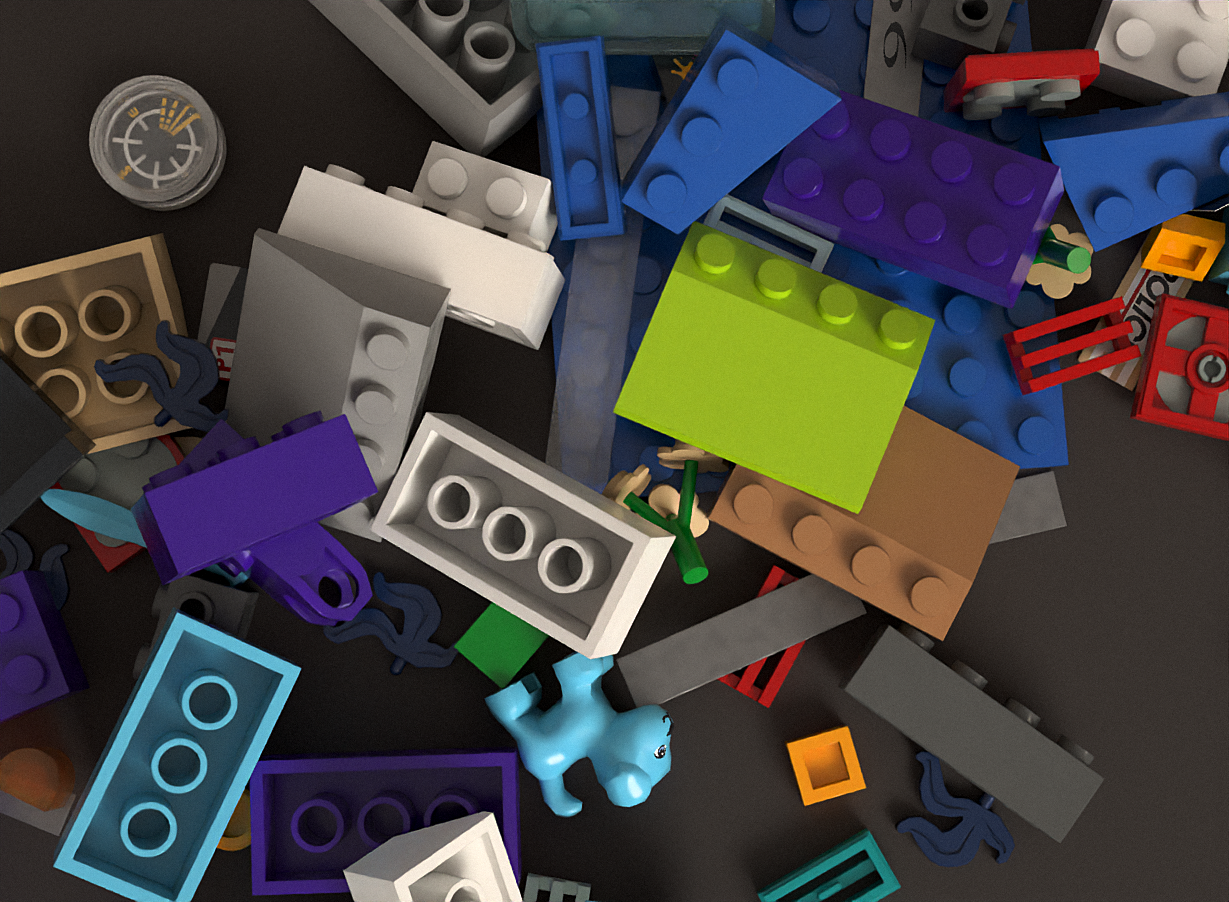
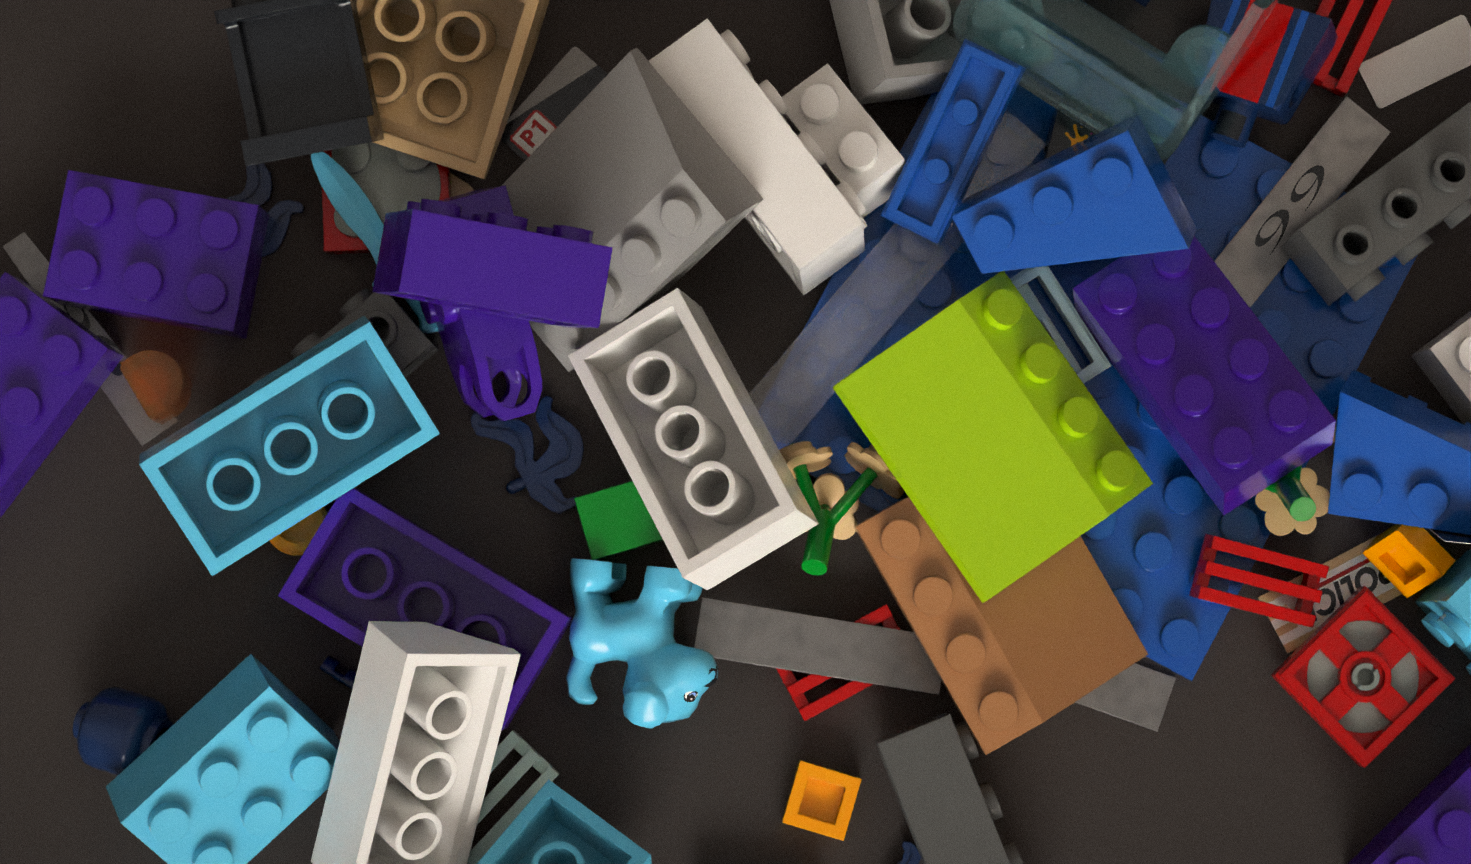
camera: 30 degrees right, 0 degrees up
(197, 378) = (501, 139): dark blue piece -> none
(1028, 80) = (1372, 338): piece -> none

